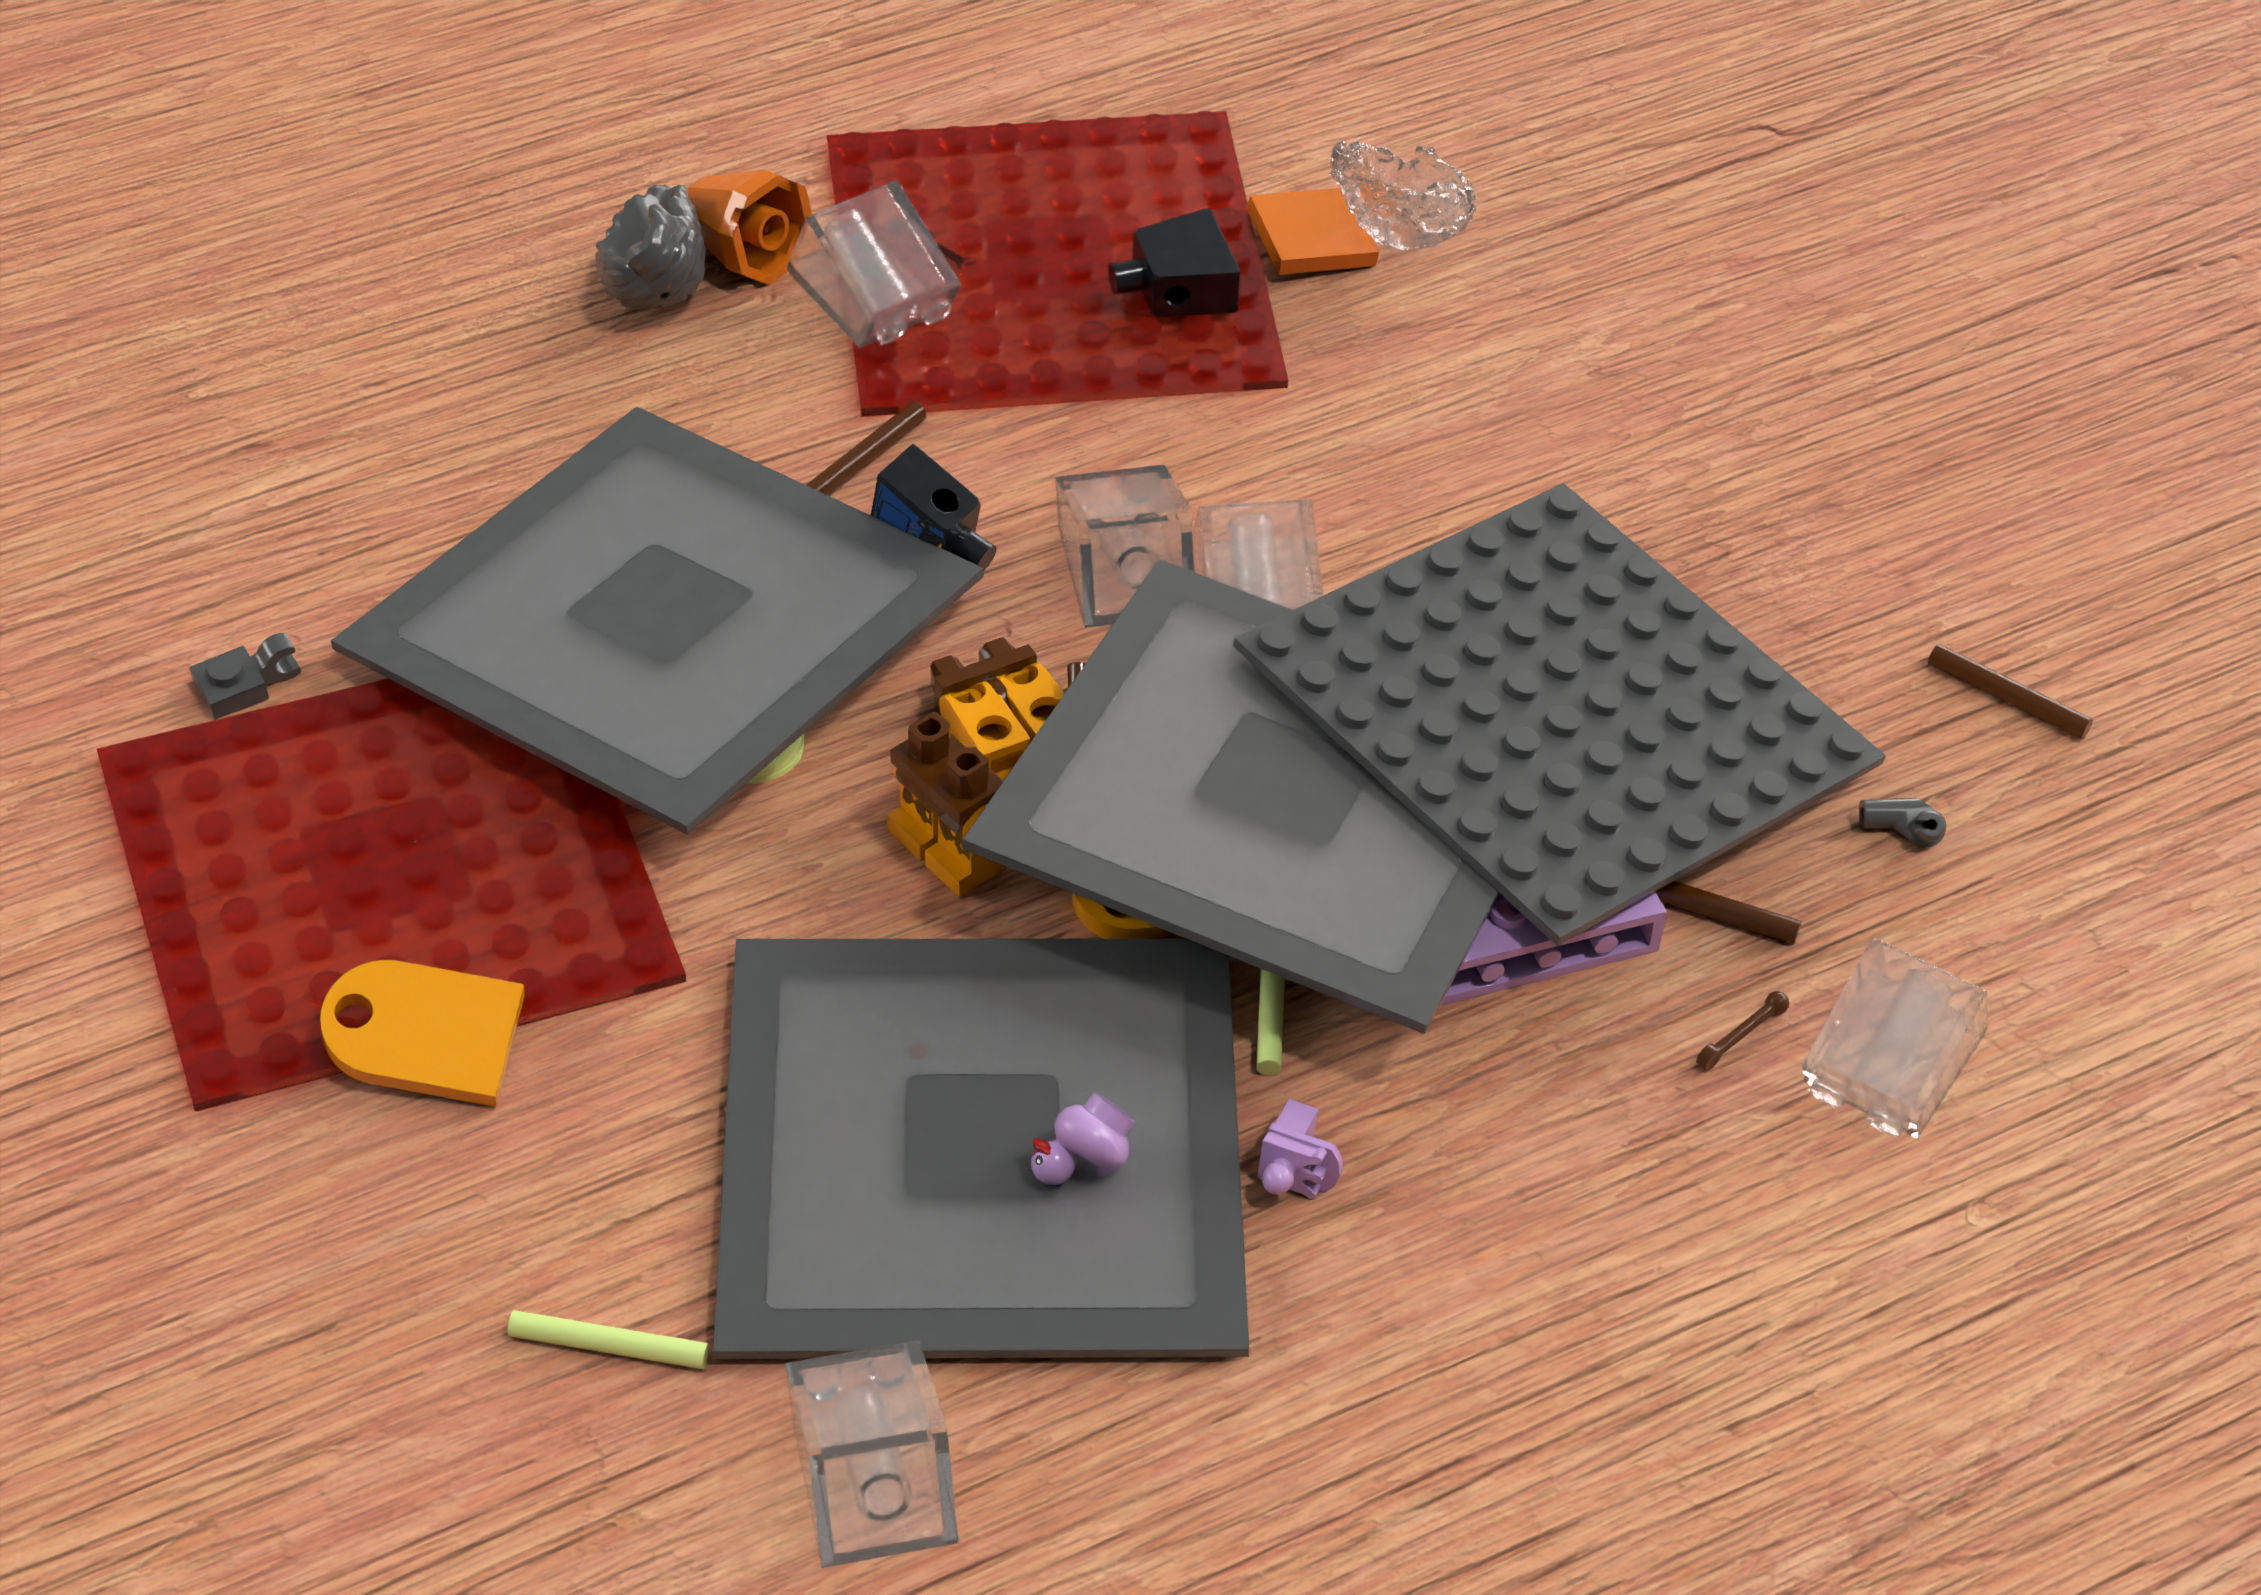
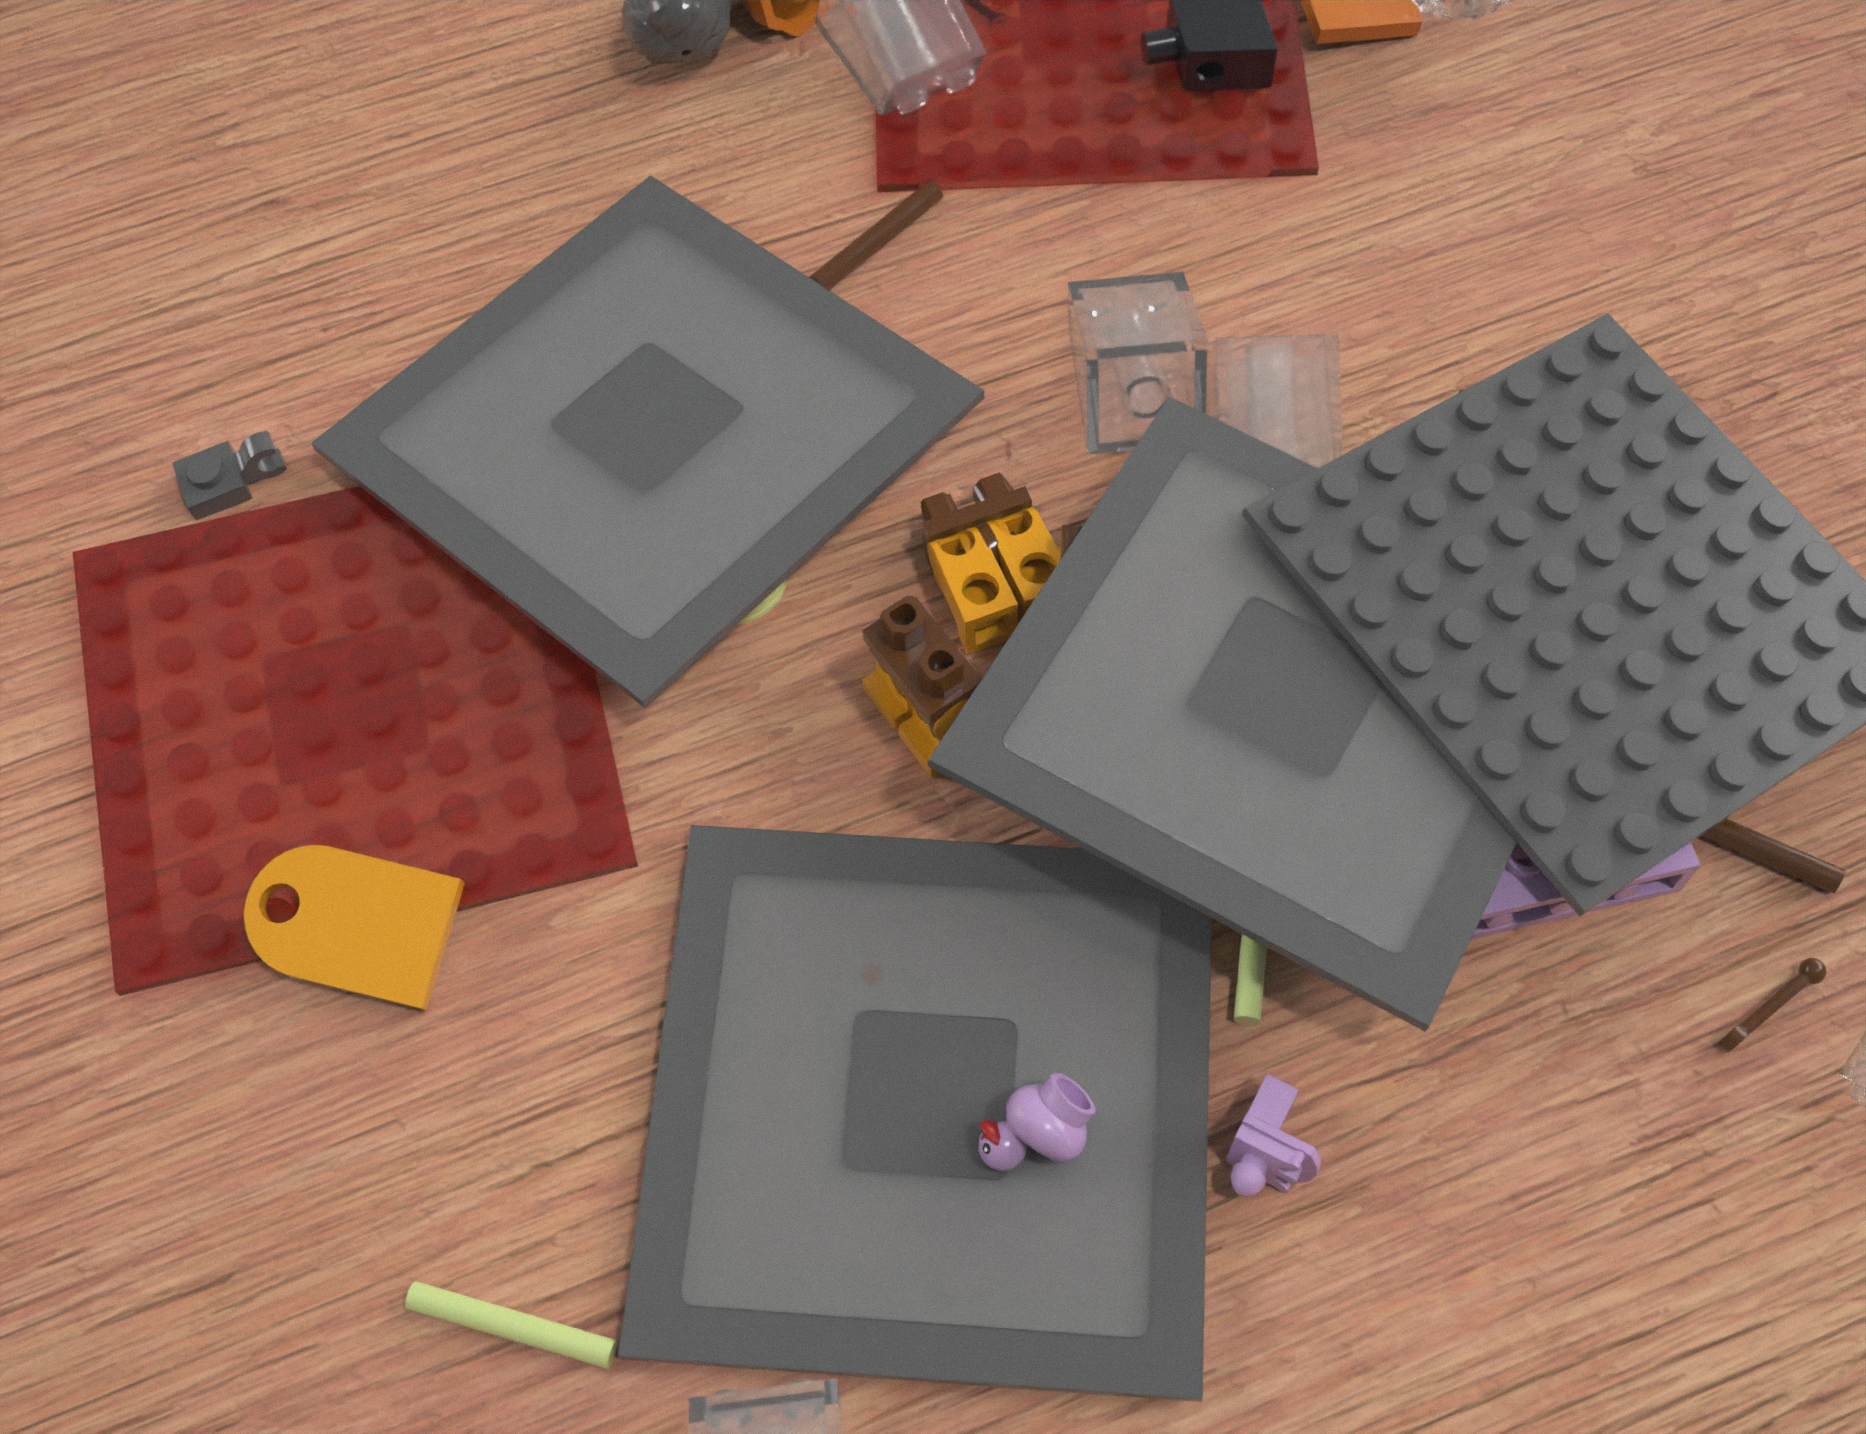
camera: 10 degrees right, 15 degrees up
(931, 505) = (936, 317): black torso -> none

